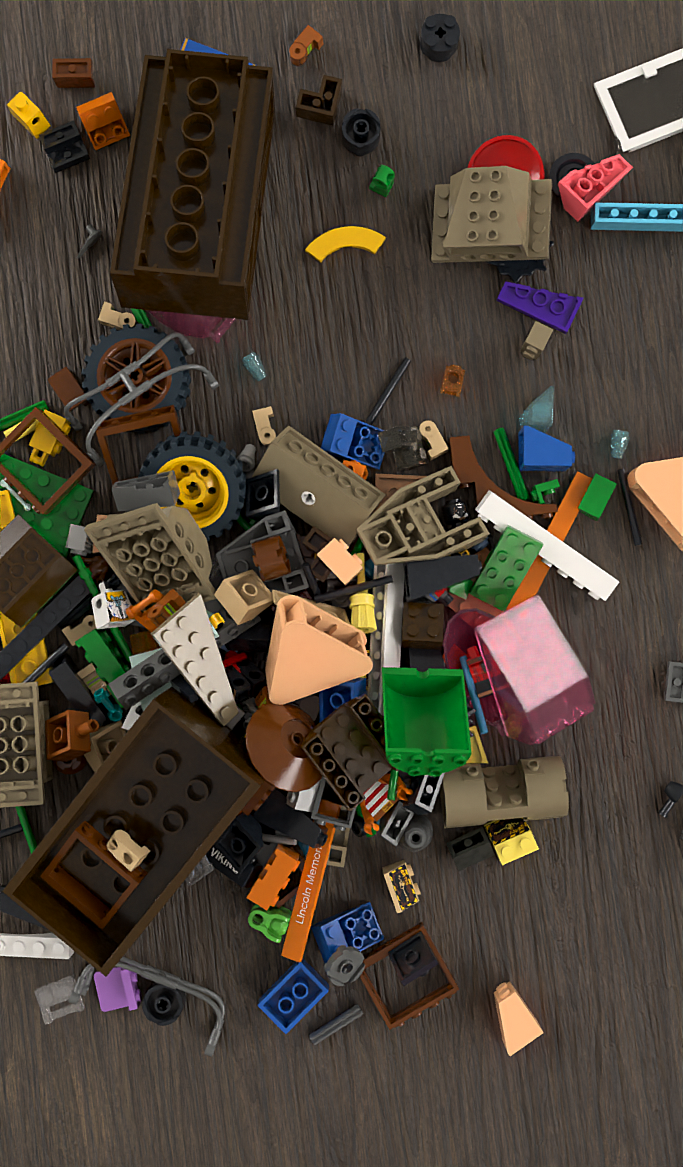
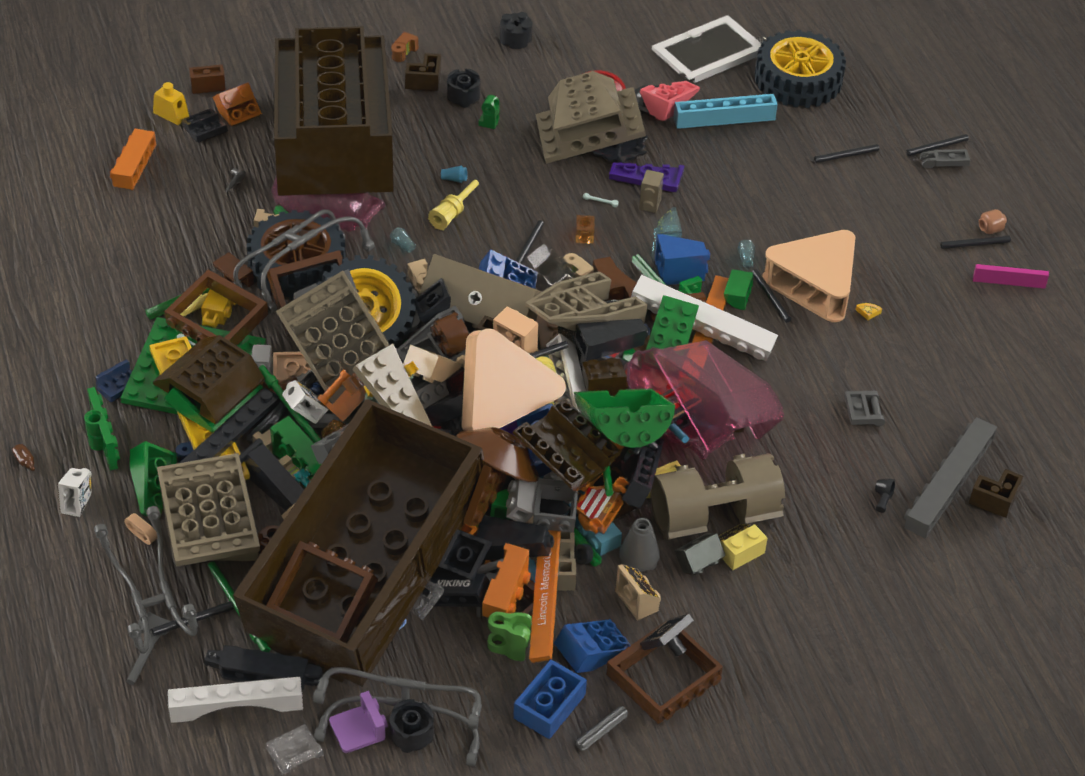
camera: 15 degrees left, 40 degrees down
(69, 735) = (275, 499): dark orange brick -> none
(126, 850) = (356, 551): tan leg -> none
(314, 325) = (450, 208): none -> light yellow piece
(328, 271) = (455, 174): none -> dark azure cone
(344, 955) = (589, 655): dark grey plate -> none
(345, 237) = (472, 152): yellow tile -> none
(394, 823) = (618, 528): dark grey slope -> none
(494, 339) = (614, 203): none -> light aqua hinge
(515, 1019) = (788, 681): light nougat slope -> none

